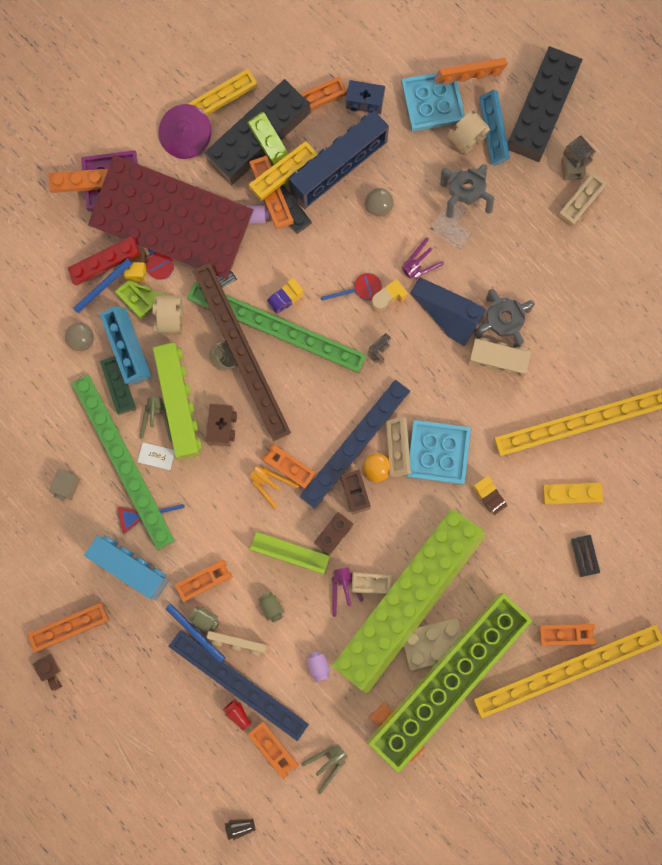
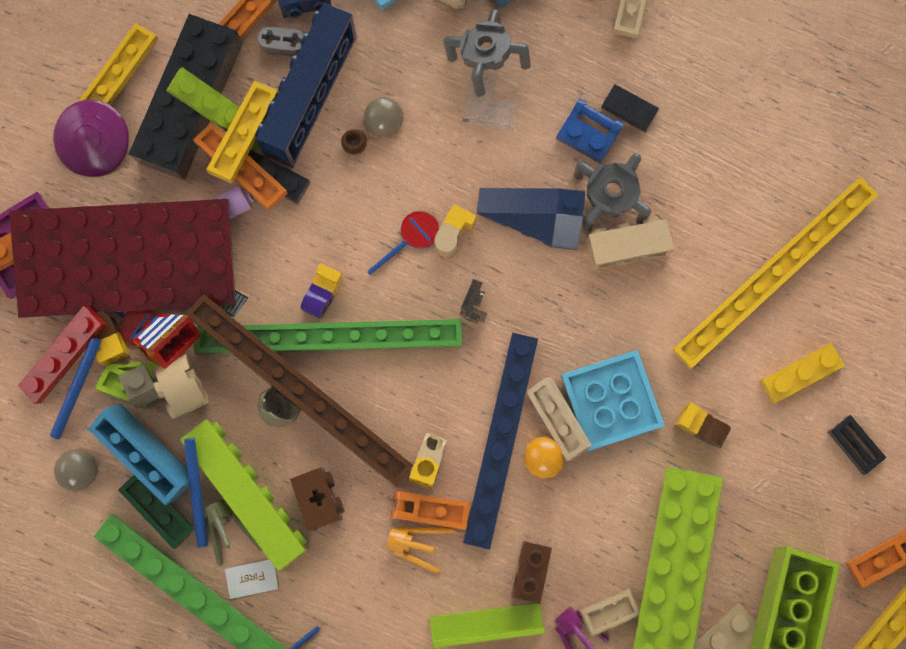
camera: 25 degrees left, 0 degrees up
(143, 302) = (139, 386): none -> dark tan brick
(147, 384) = (196, 492): none -> blue bar
(173, 280) = (166, 338): none -> red torso
(301, 435) = (428, 461): none -> leg
(336, 124) = (282, 42): none -> light grey beam
(349, 205) = (350, 135): none -> reddish brown plate
(355, 492) = (533, 504): reddish brown brick -> none
(411, 267) = (464, 181): magenta plant -> none
(506, 276) = (586, 138): none -> blue plate
(545, 270) = (630, 108): none -> black tile

